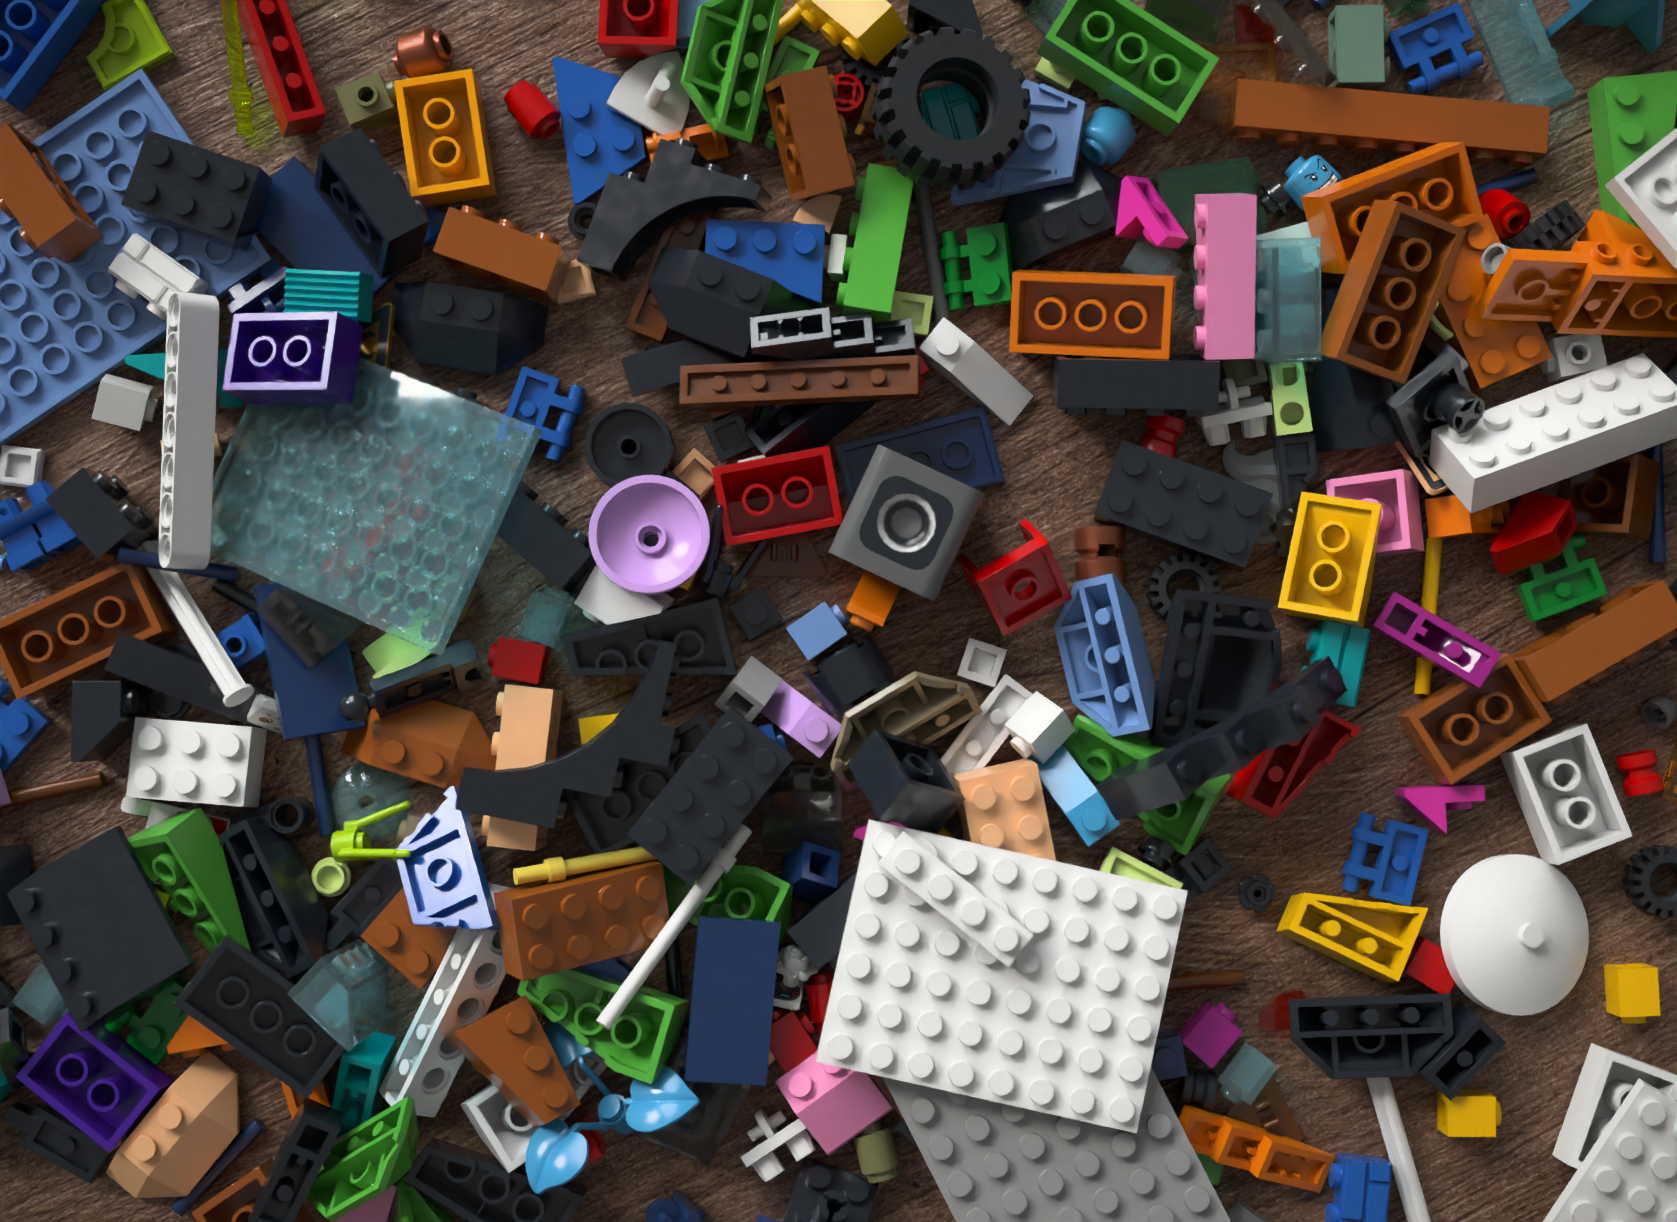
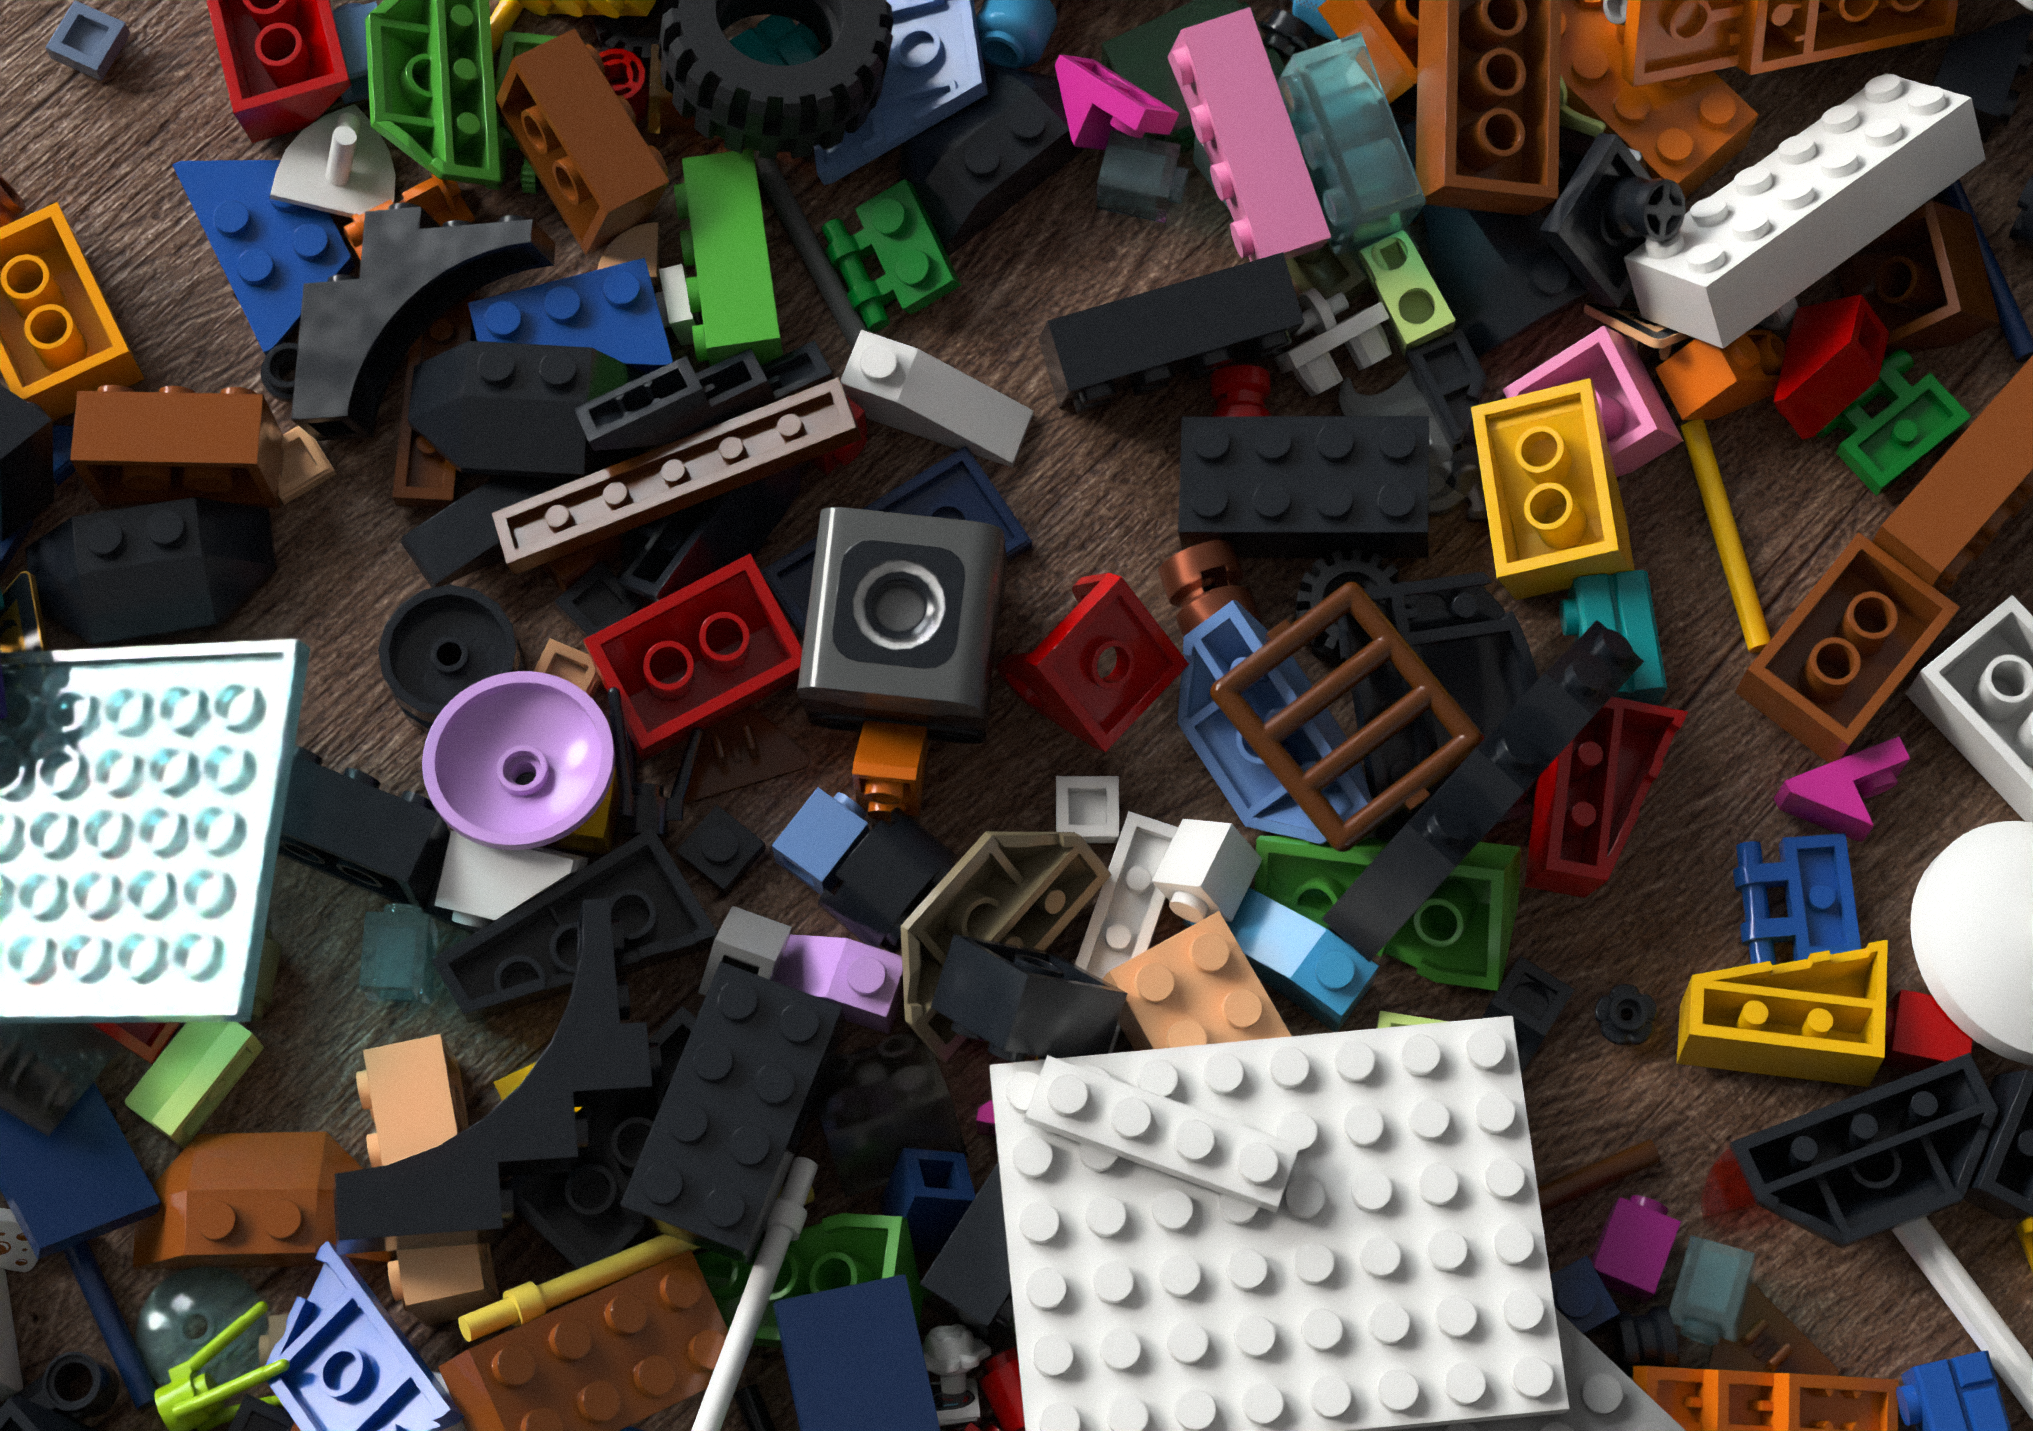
camera: 20 degrees left, 15 degrees down
(416, 683) = (223, 1109): black plate -> none
(519, 660) = (368, 1023): red brick -> none
(532, 110) = (164, 243): red brick -> none
(532, 402) = (345, 638): blue plate -> none
(913, 306) = (826, 334): yellowish green plate -> none
(1092, 314) = (1073, 253): orange brick -> none
(1102, 667) = (1307, 786): none -> reddish brown bar
(1157, 853) = (1452, 1000): black plate -> none
(1435, 640) = (1740, 551): magenta slope -> none
(1573, 356) = (1788, 106): white brick -> none

